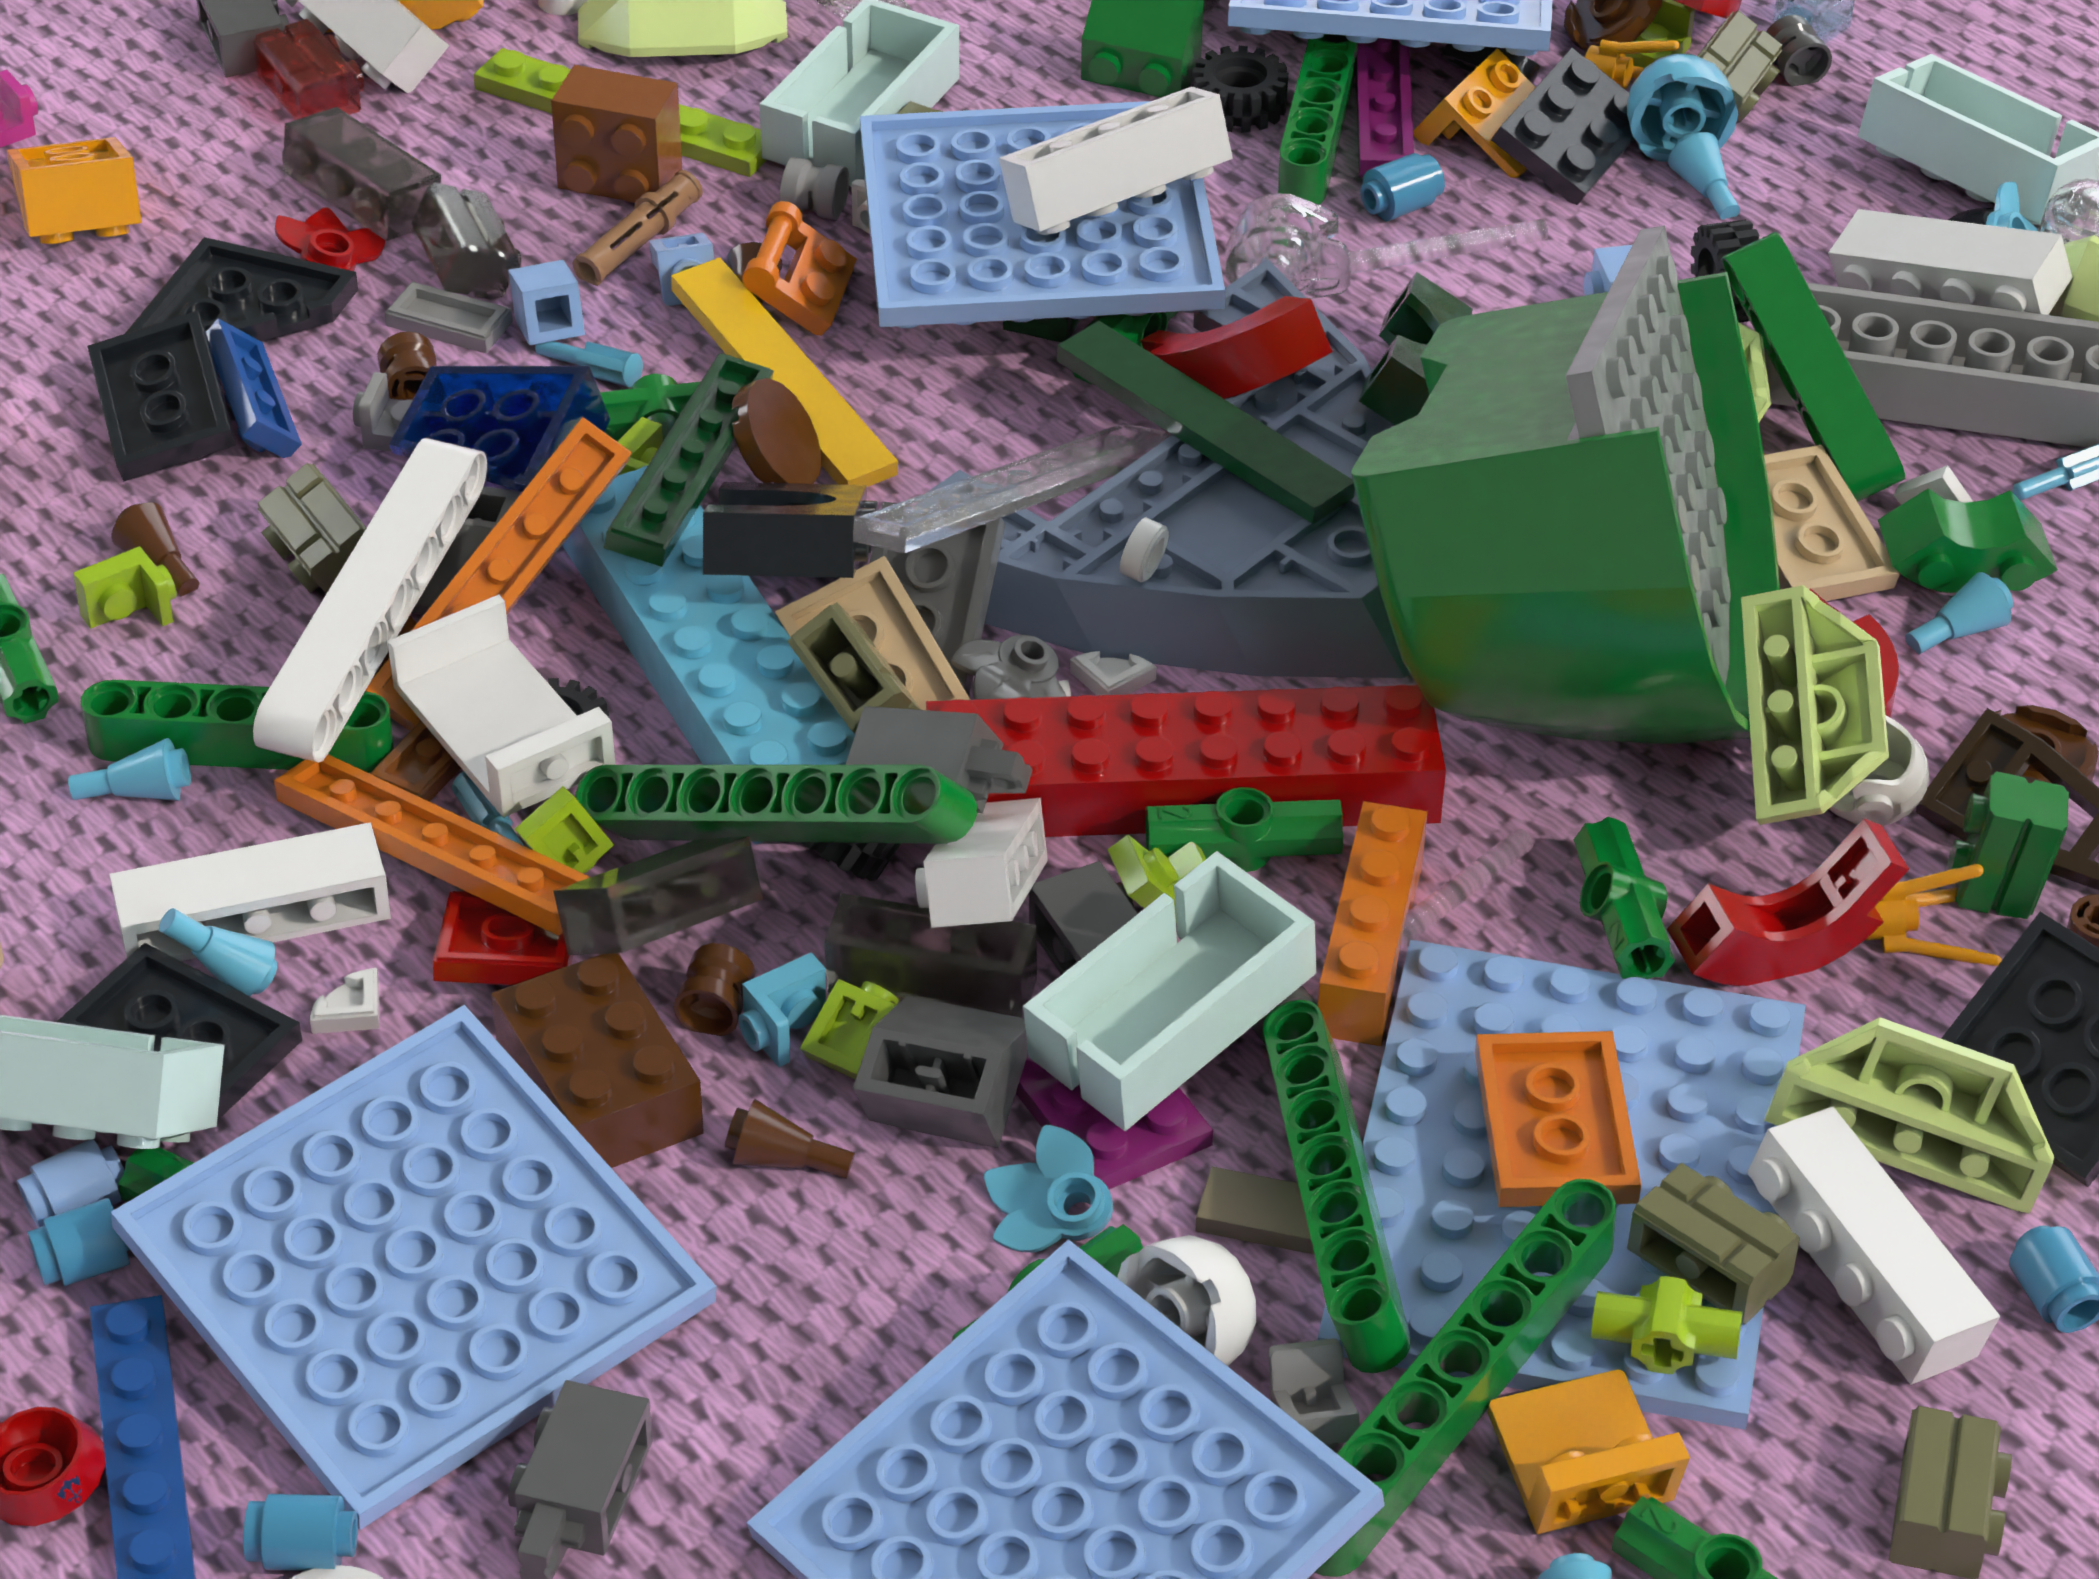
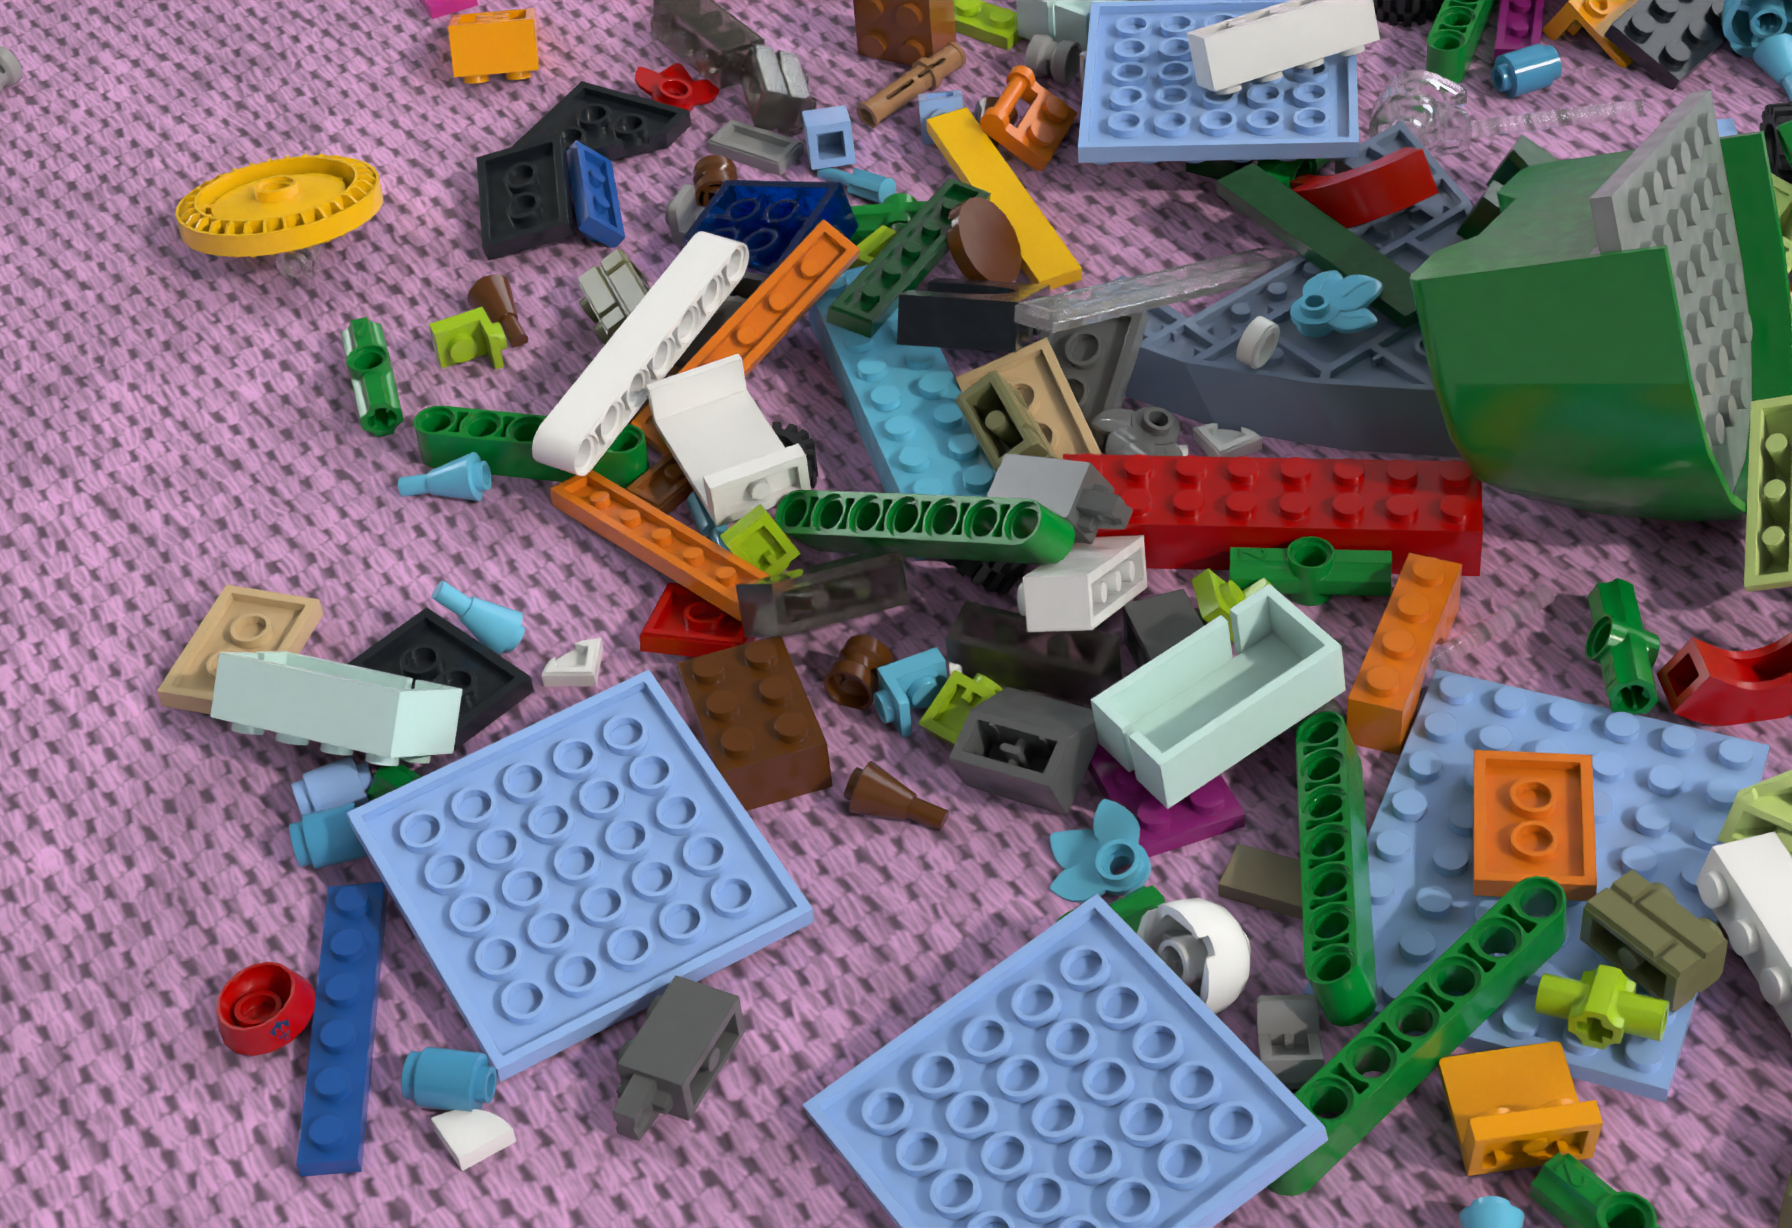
camera: 15 degrees right, 0 degrees up
(258, 890) = (521, 572): white brick -> none
(1228, 497) = (1335, 304): none -> medium azure plate

